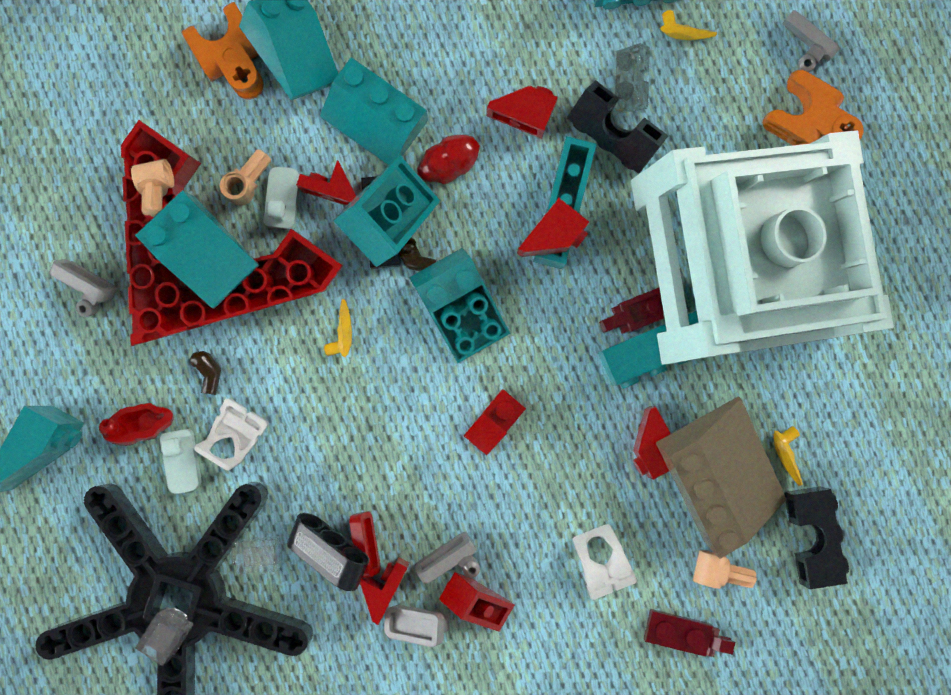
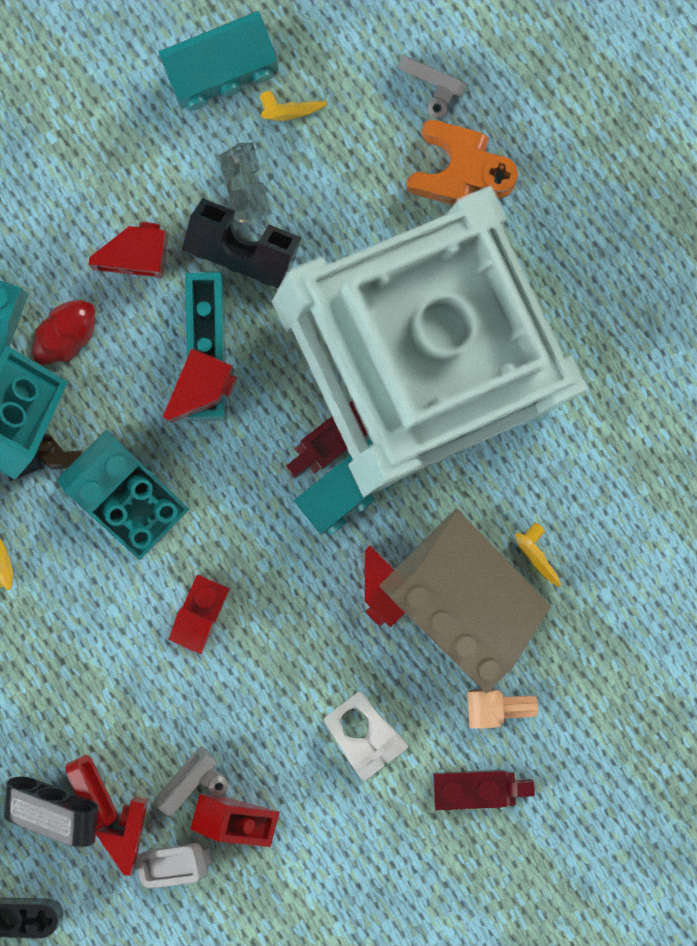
camera: 10 degrees left, 0 degrees up
(824, 562) = (608, 666): black arch -> none

